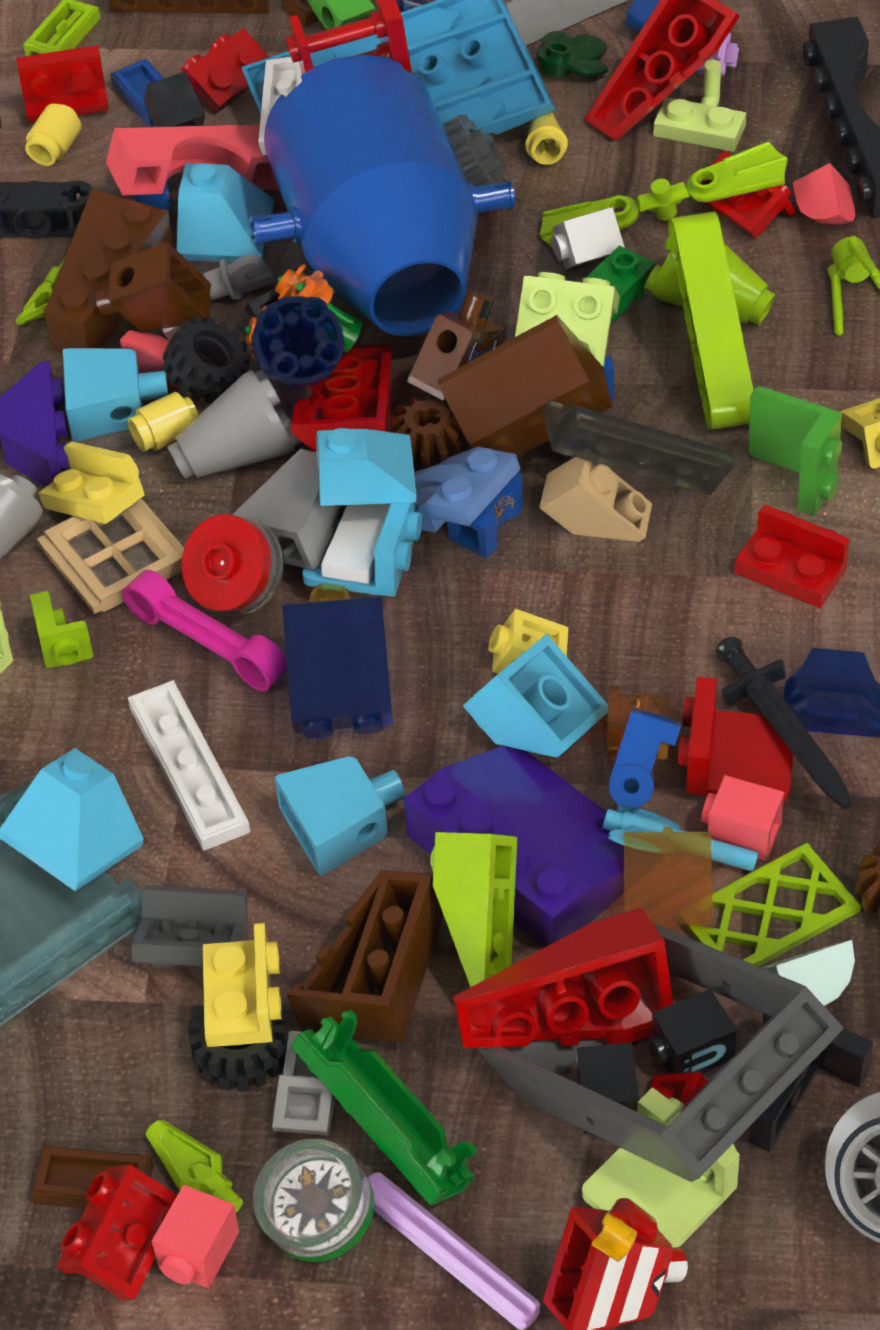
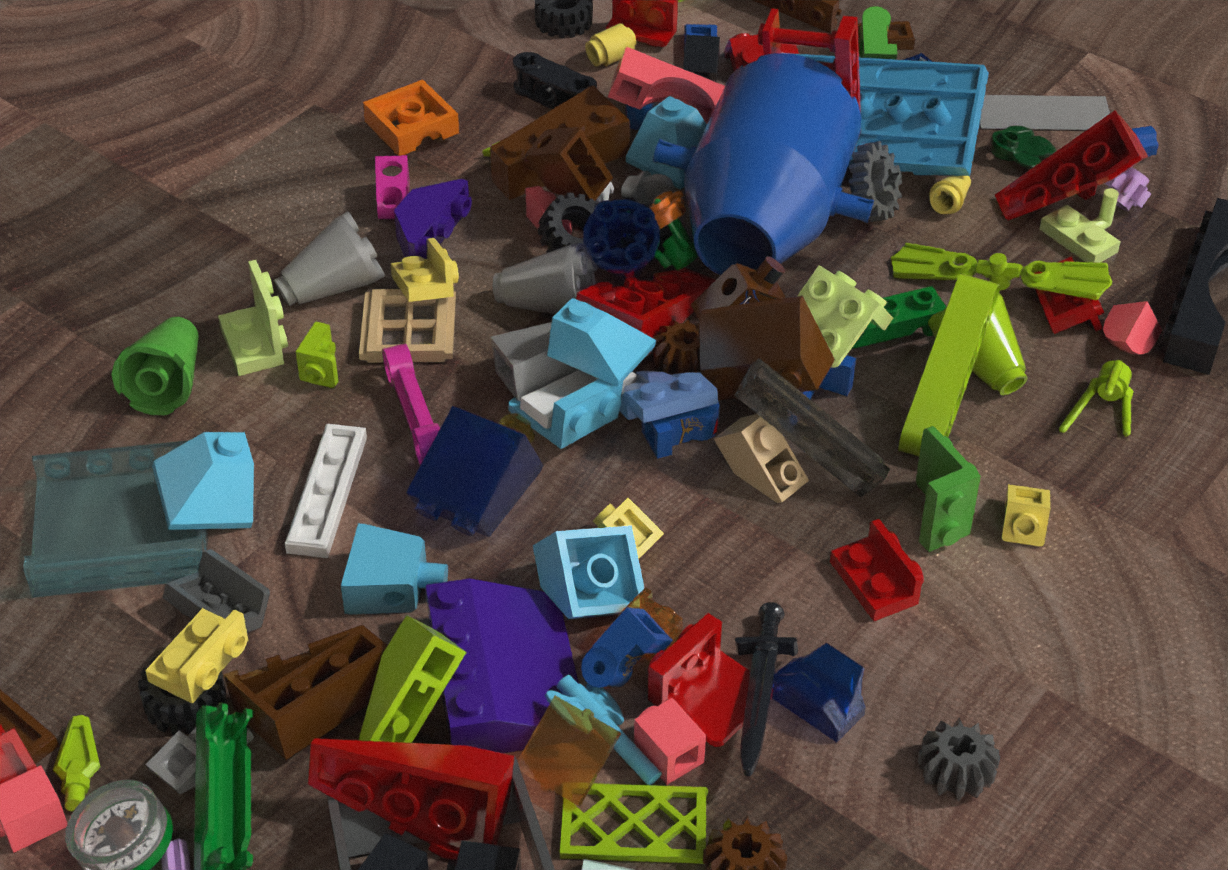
camera: 30 degrees right, 5 degrees down
(106, 390) = (492, 220): medium azure torso -> none
(161, 421) = (508, 253): light yellow brick -> none
(232, 564) = (463, 368): red piece -> none
(586, 238) = (914, 270): white brick -> none

